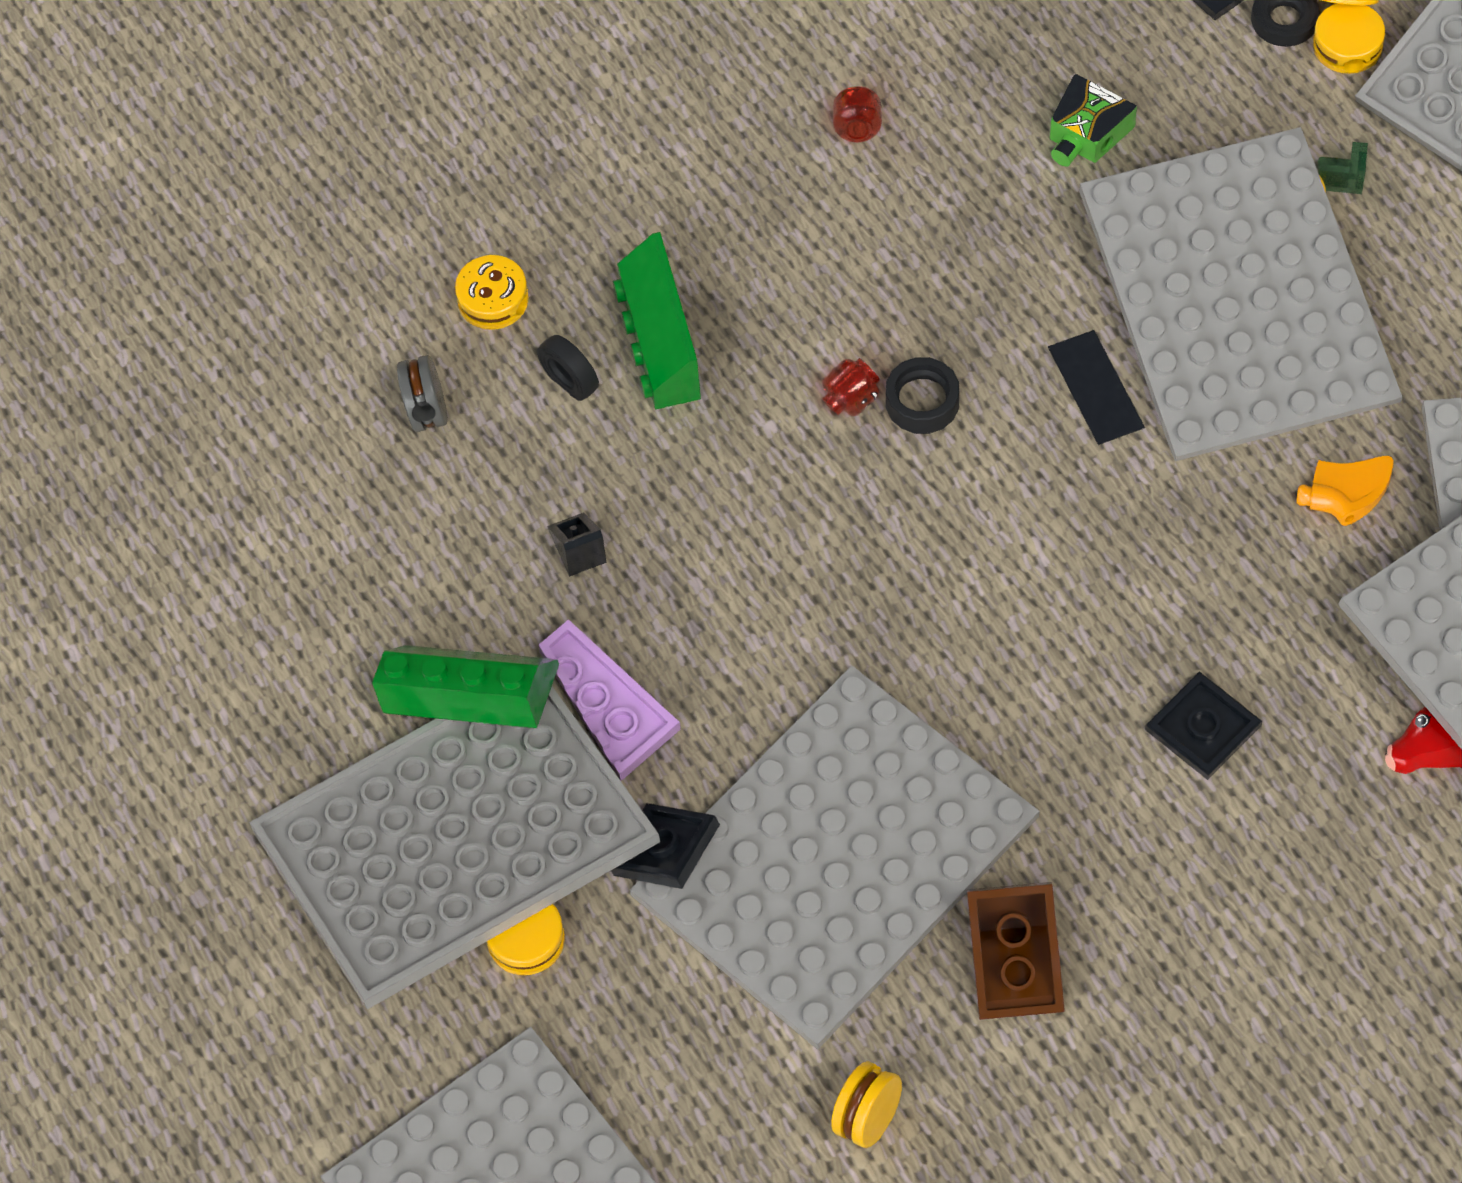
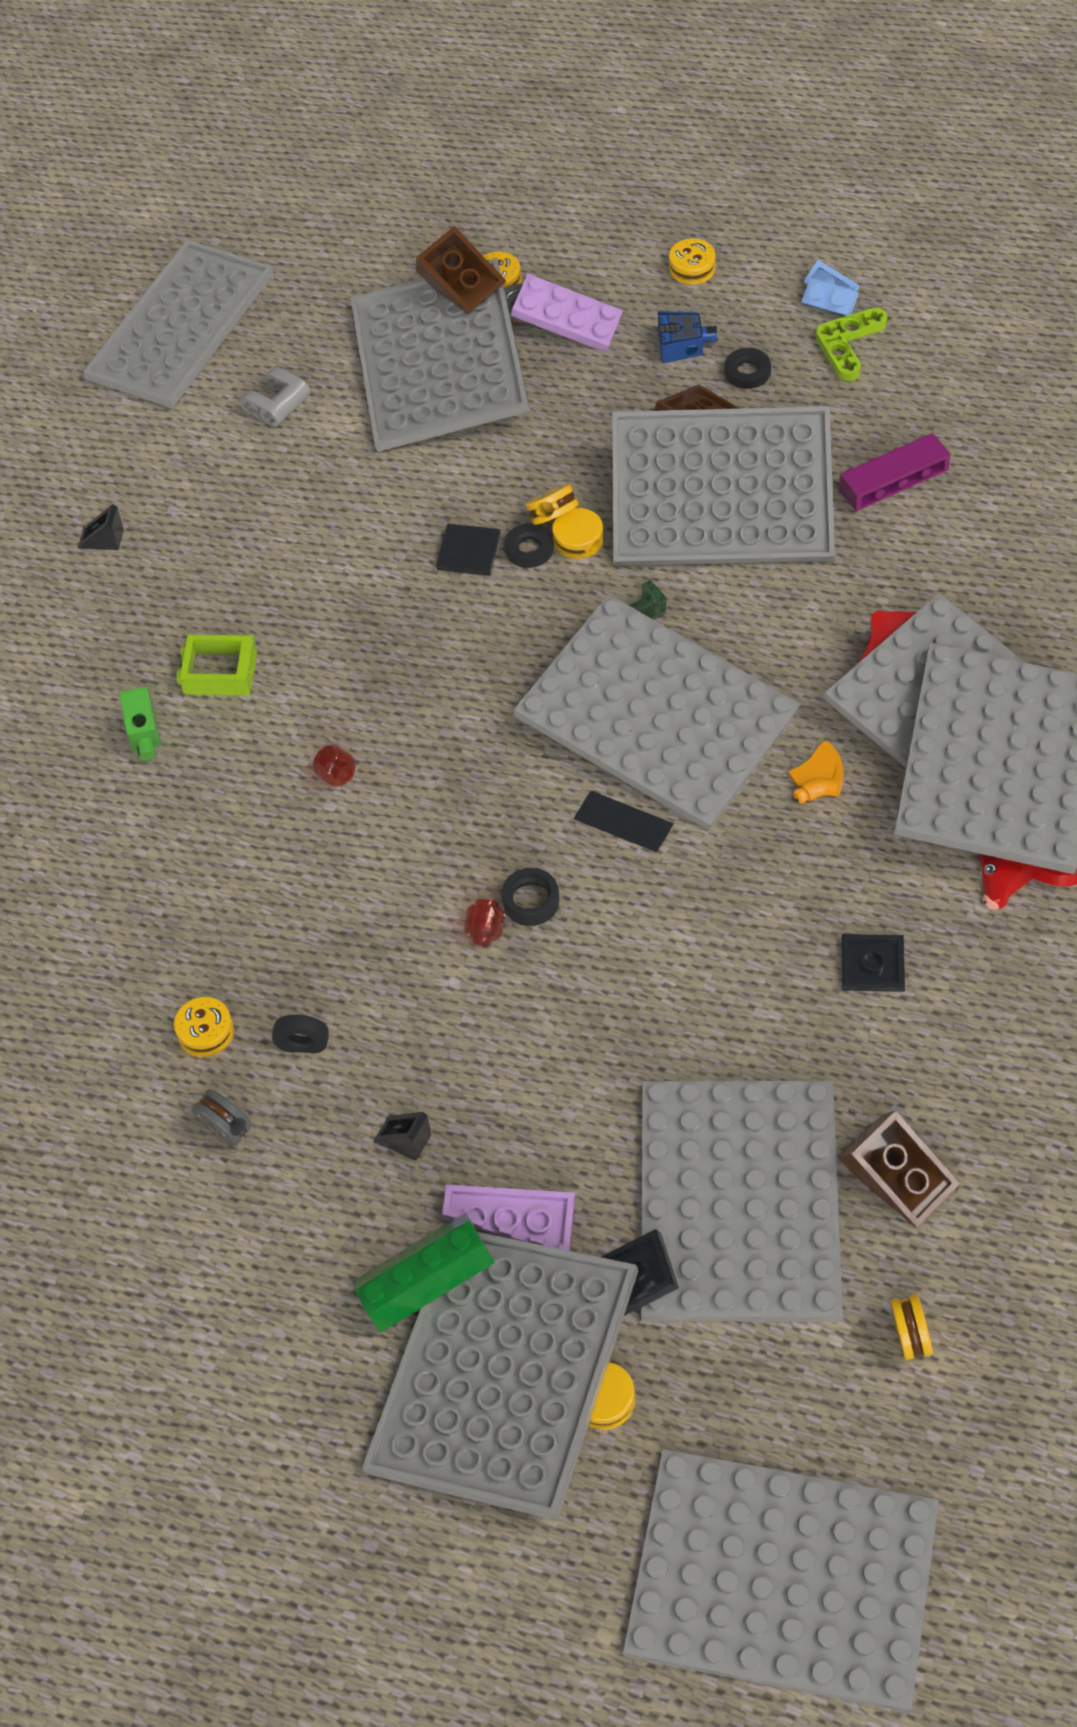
camera: 40 degrees left, 5 degrees down
(658, 325) = (334, 967): green slope -> none
(1089, 121) = (476, 676): torso -> none

